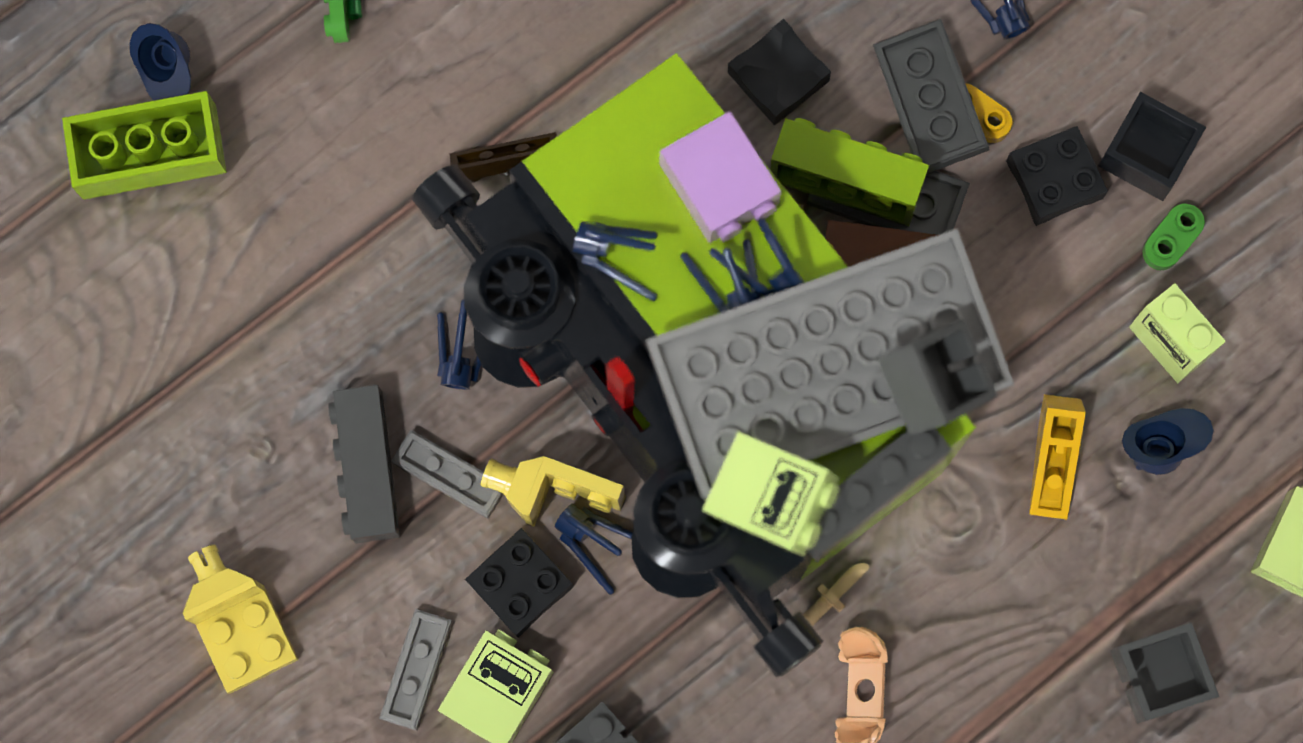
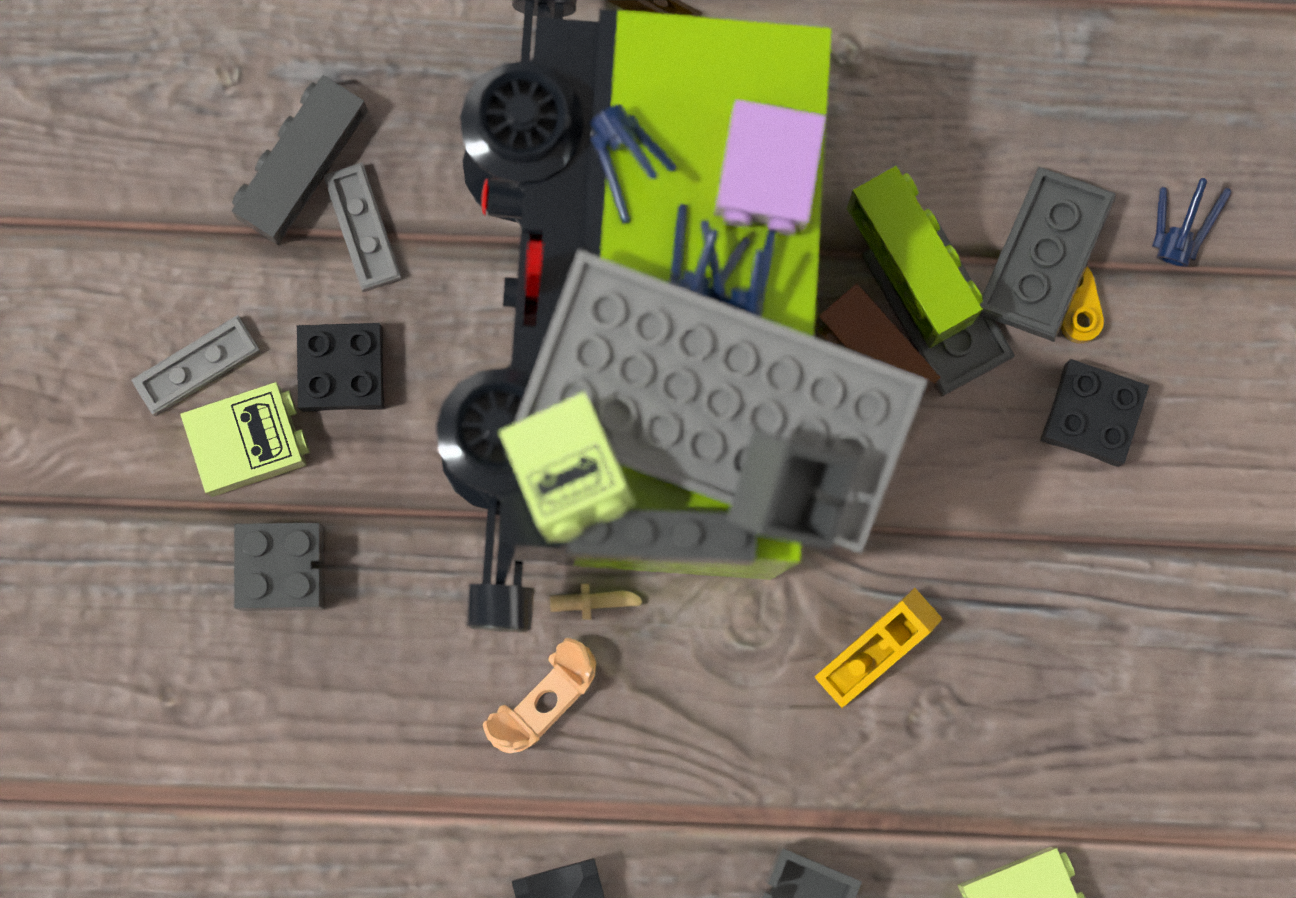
camera: 30 degrees right, 5 degrees up
(236, 622) = (82, 200): light yellow plate -> none
(457, 371) = (441, 142): dark blue plant -> none
(529, 484) = (418, 292): light yellow plate -> none
(577, 524) = (428, 360): dark blue plant -> none
(779, 72) = (935, 122): black brick -> none
(1152, 146) = (1197, 457): black piece -> none
(1167, 439) = (983, 714): dark blue piece -> none
(1174, 235) = (1149, 550): bright green plate -> none
(1176, 333) = (1070, 633): yellowish green brick -> none

